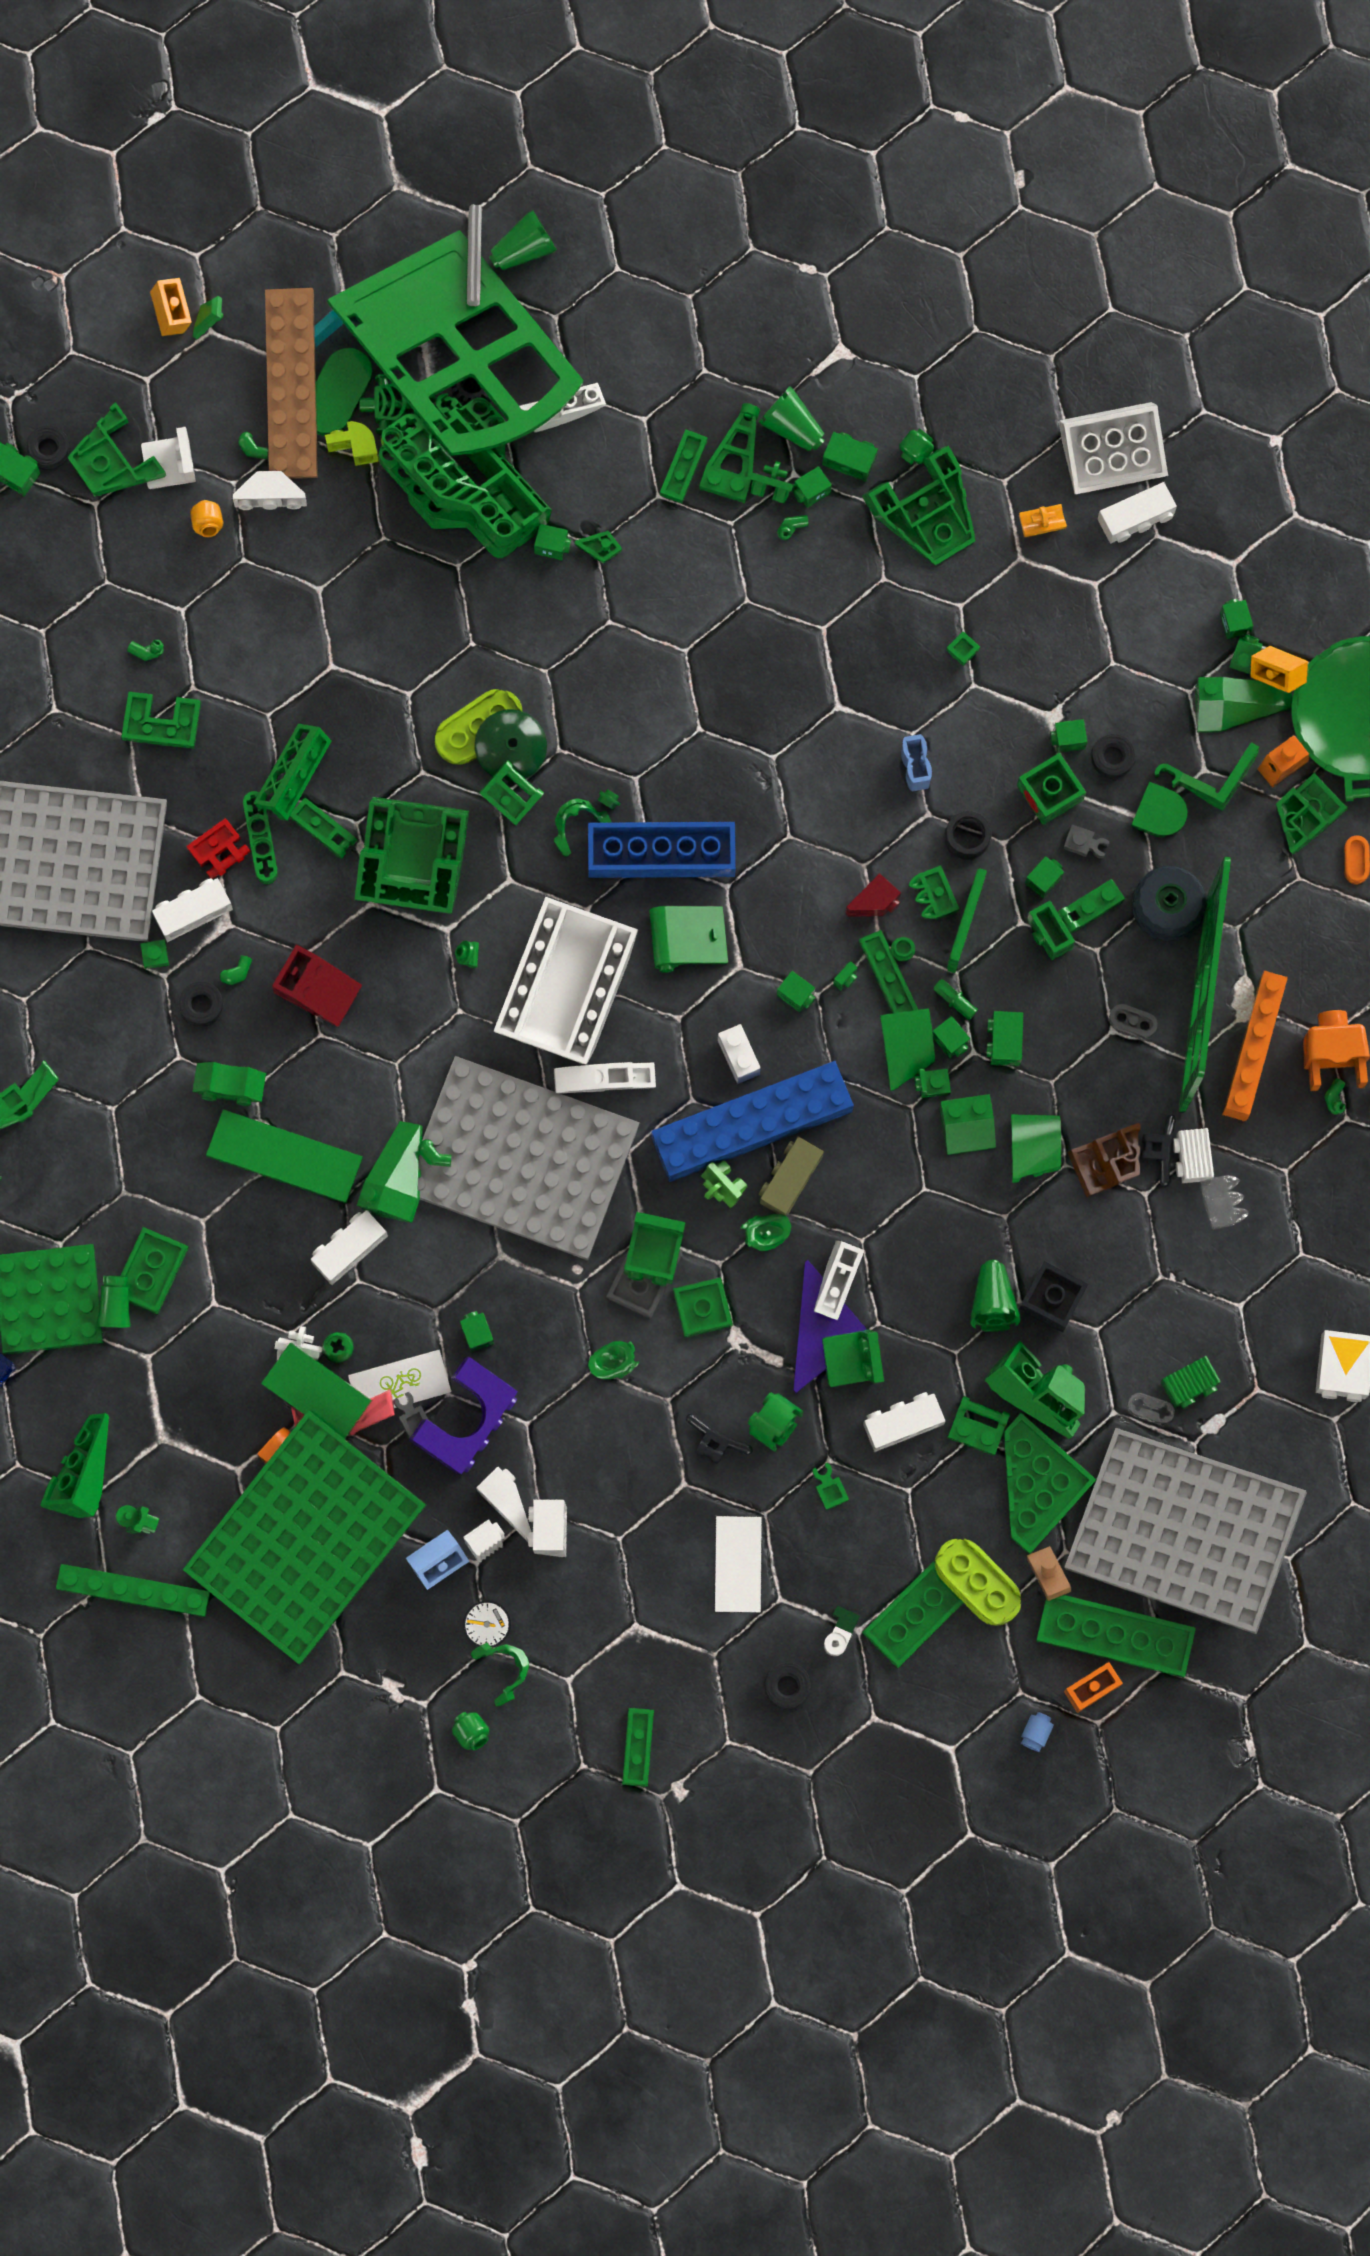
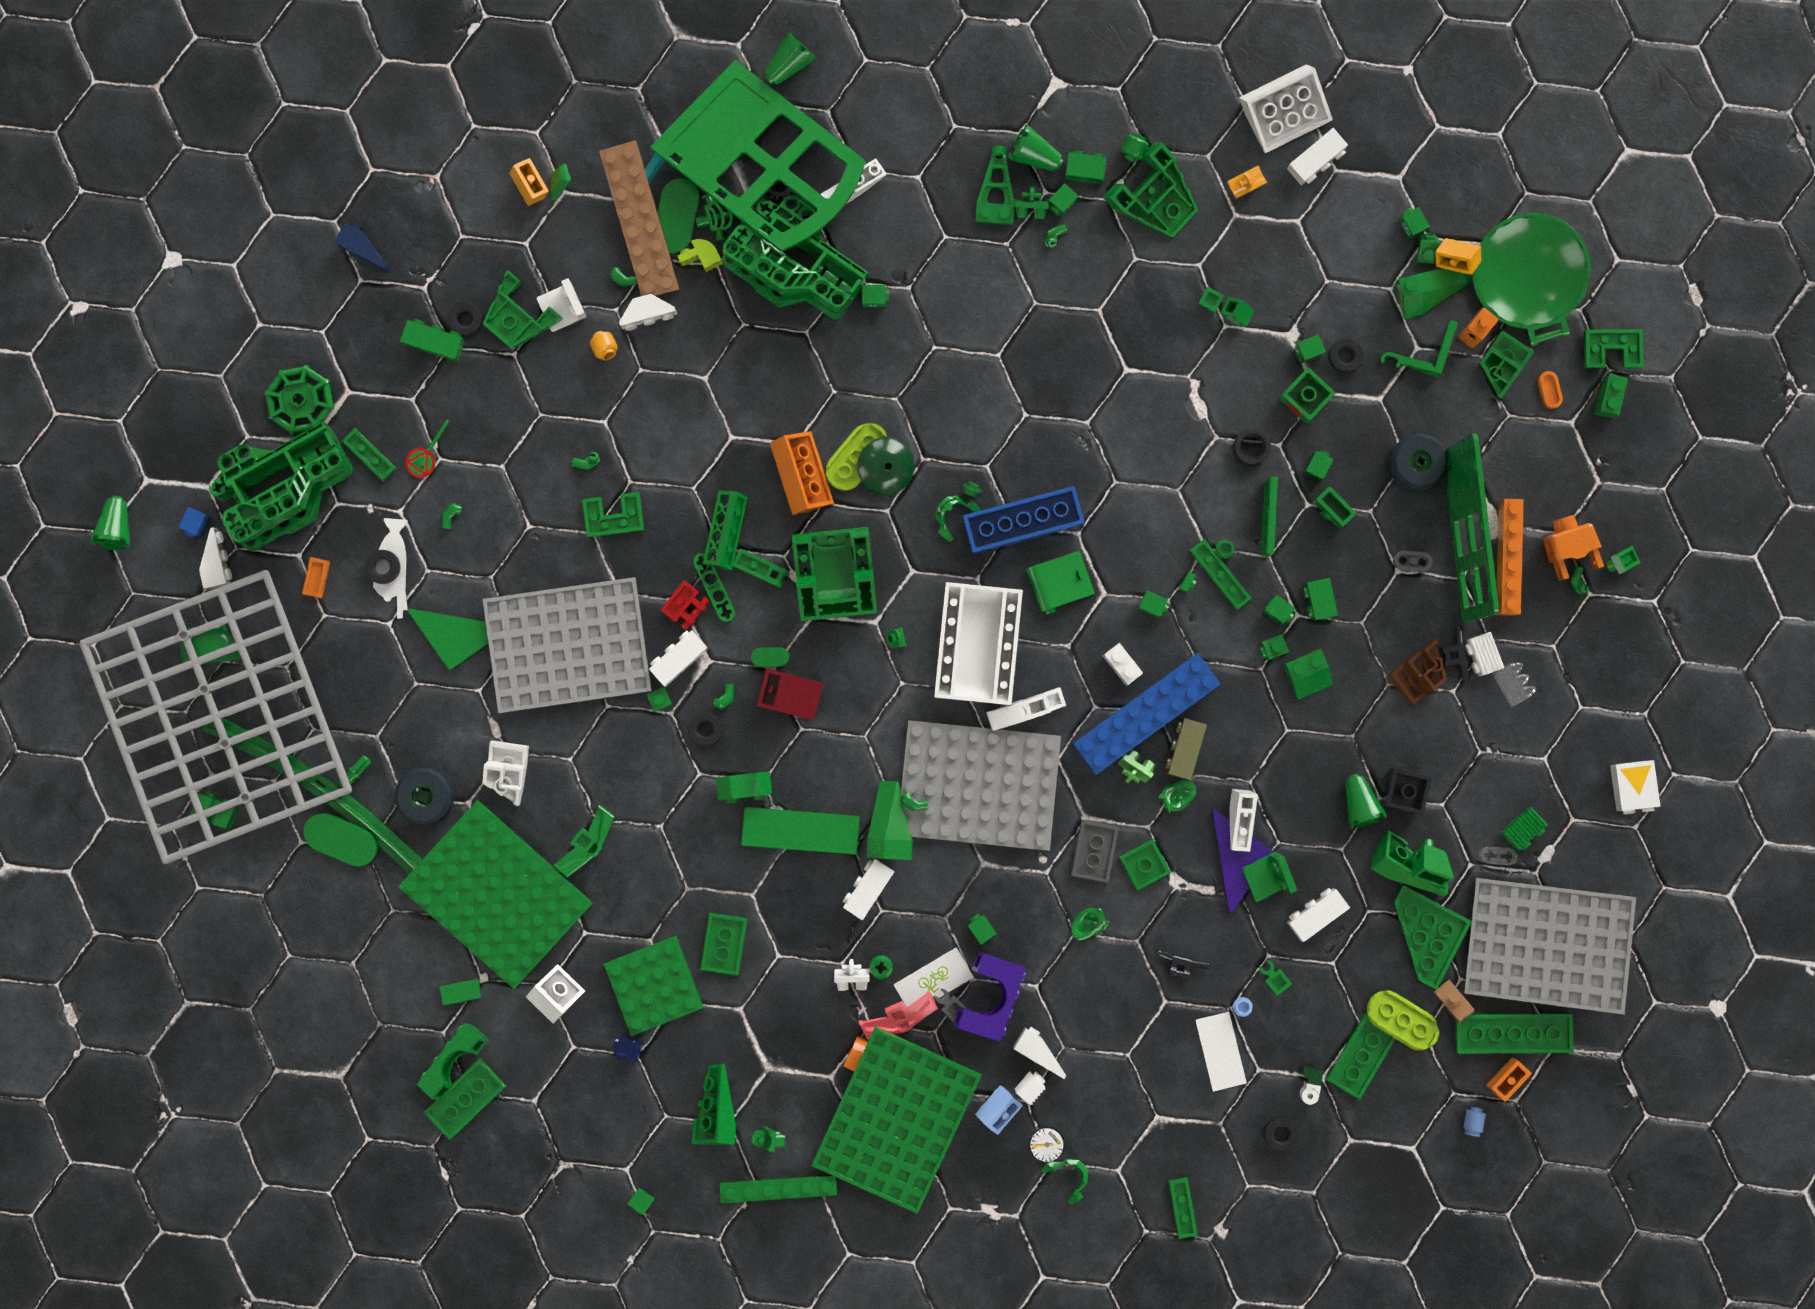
camera: 15 degrees left, 10 degrees up
(114, 1303) = (704, 979): green plant -> none
(308, 937) = (770, 657): none -> green tile
(316, 1389) = (875, 1007): green tile -> none
(405, 727) = (801, 472): none -> orange slope
(470, 1731) = (1057, 1230): green head -> none
(474, 255) = (753, 80): light grey axle -> none
(505, 799) = (893, 510): green plate -> none
(549, 1527) = (1076, 1066): white slope -> none
(600, 546) = (911, 289): green piece -> none
(654, 1249) = (1098, 833): green panel -> none
(683, 466) = (959, 208): green plate -> none
(775, 1421) = (1223, 940): green brick -> none
(779, 1513) = (1242, 1006): none -> light blue plate
(875, 899) = (1194, 516): dark red slope -> none
(907, 1044) = (1247, 624): green slope -> none
(914, 758) = (1196, 396): medium blue brick -> none
(935, 892) = (1239, 499): green plate -> none
(955, 999) = (1274, 578): green axle -> none
(975, 1433) = (1373, 908): green plate -> none
(991, 669) = (1237, 311): none -> green brick
(1035, 1145) = (1363, 677): green slope -> none
(1081, 841) = (1338, 429): dark grey plate -> none
(1091, 906) = (1358, 478): green plate -> none
(1160, 812) = (1392, 390): green tile -> none

